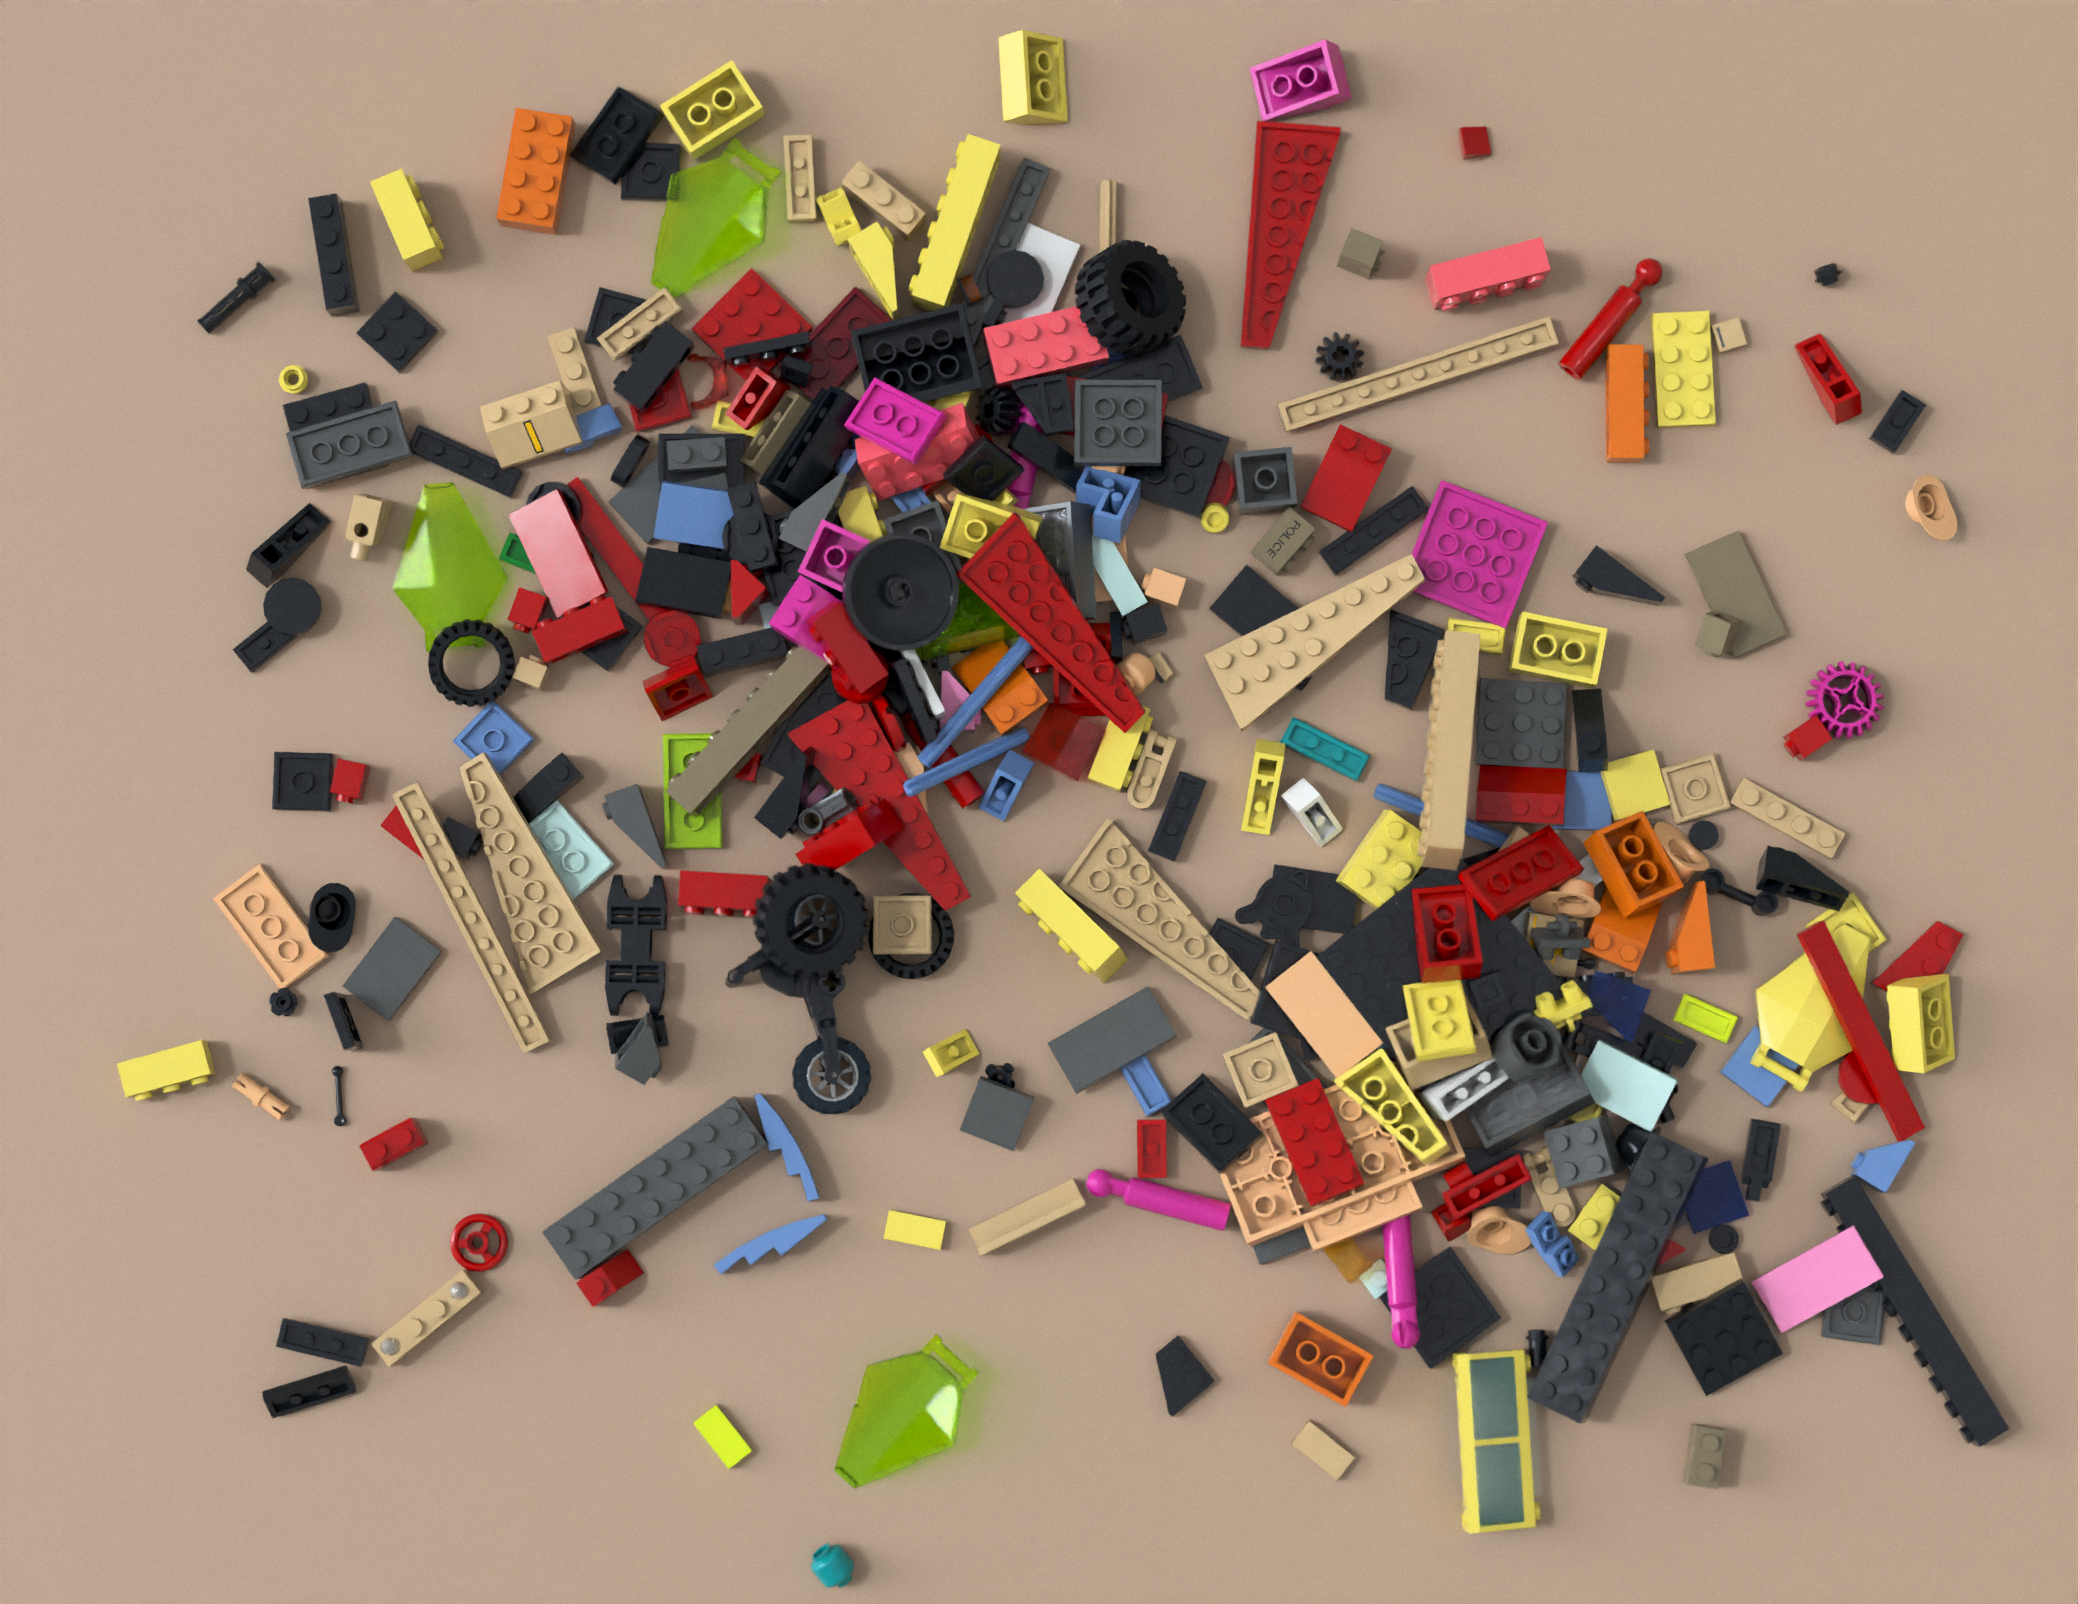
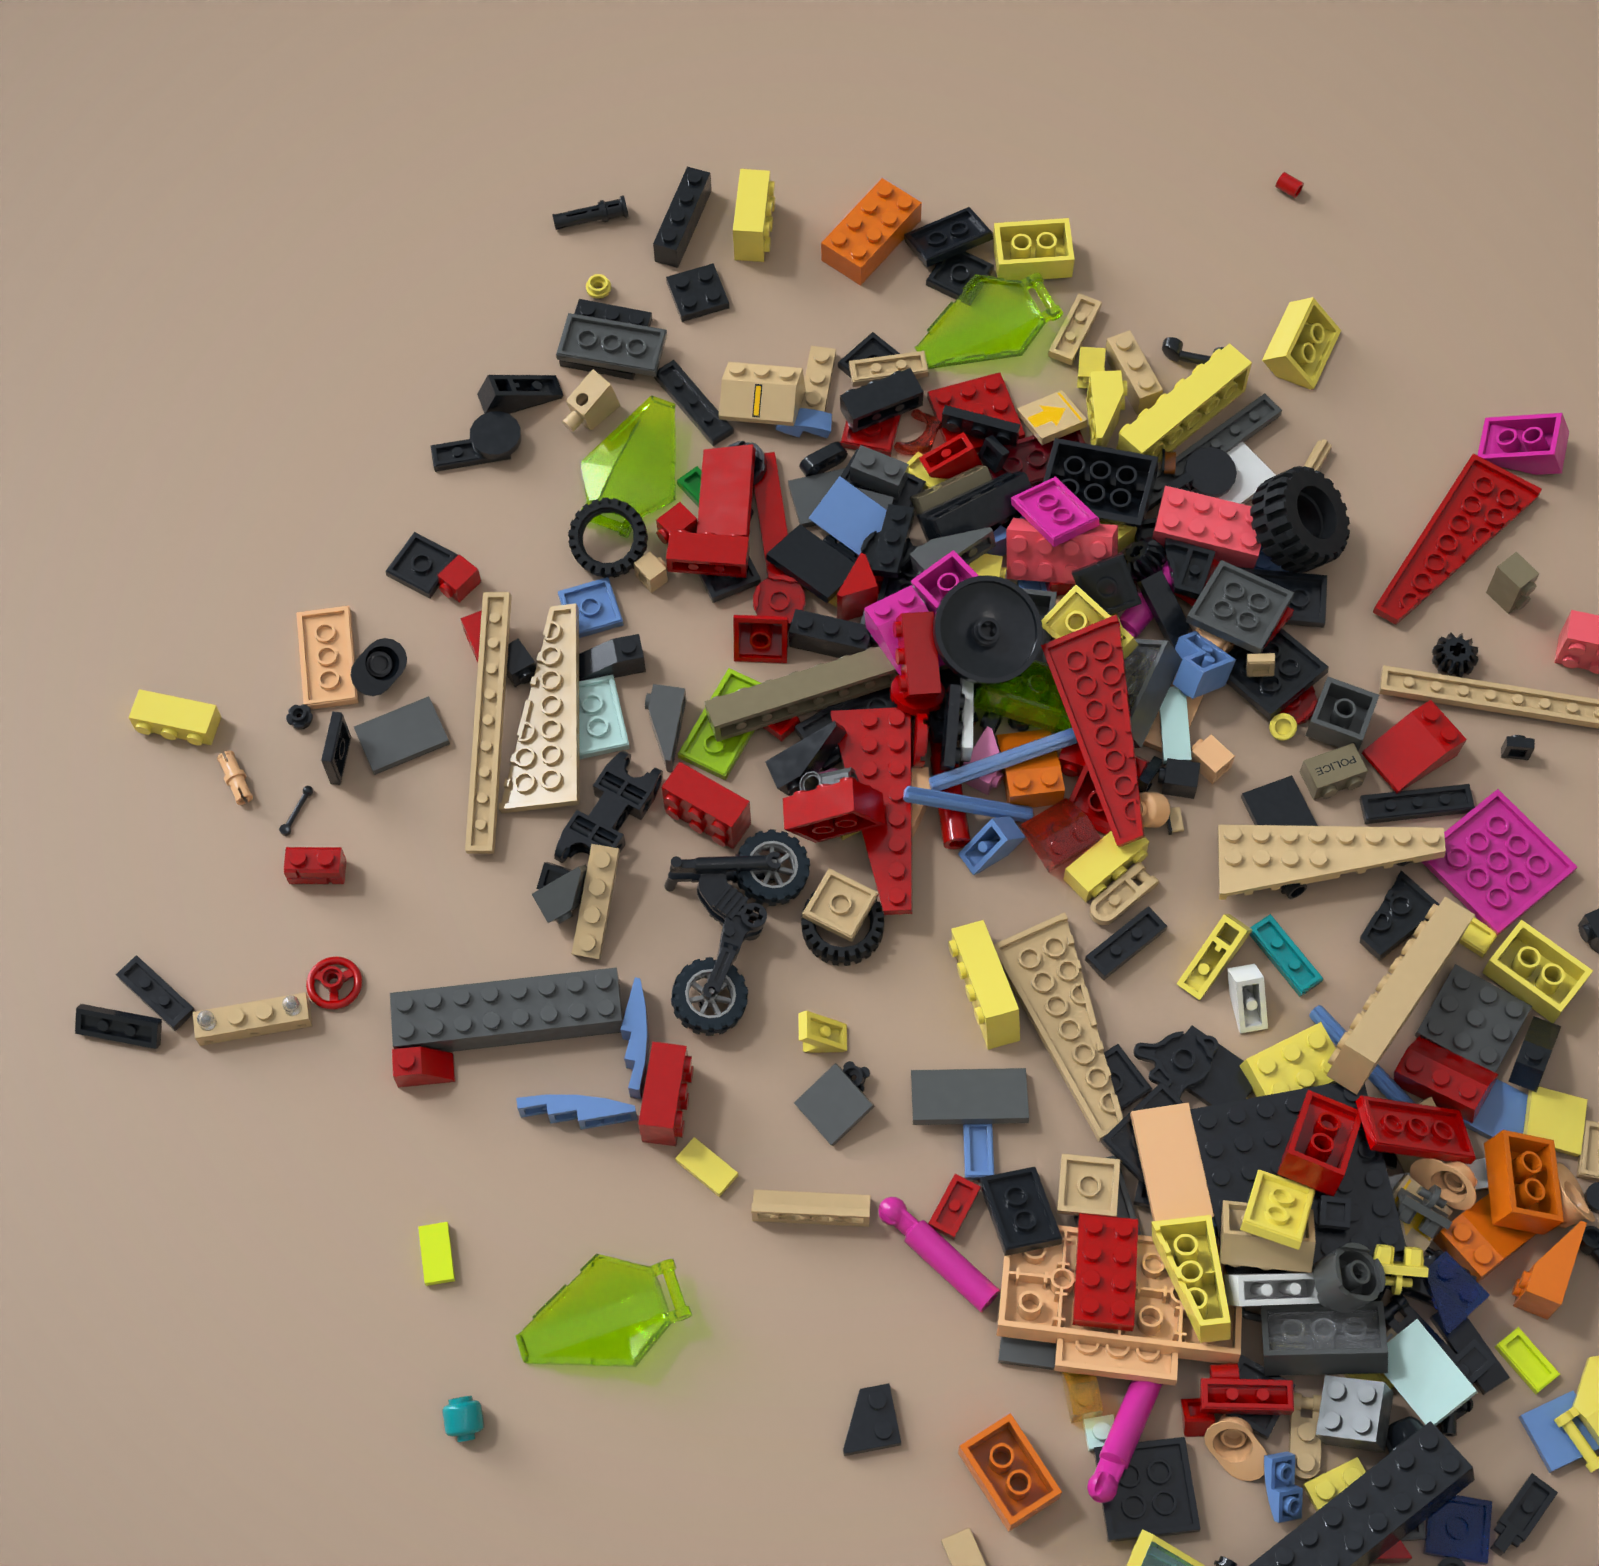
camera: 30 degrees right, 20 degrees down
(675, 1040) = (595, 901): none -> tan plate
(829, 294) = (1052, 417): none -> tan tile
(838, 947) = (786, 815): black tyre -> none
(844, 1189) = (665, 1094): none -> red brick
(909, 150) = (1173, 347): none -> black bar
(1165, 472) = (1260, 665): none -> tan tile
(1439, 424) = (1517, 747): none -> black plate

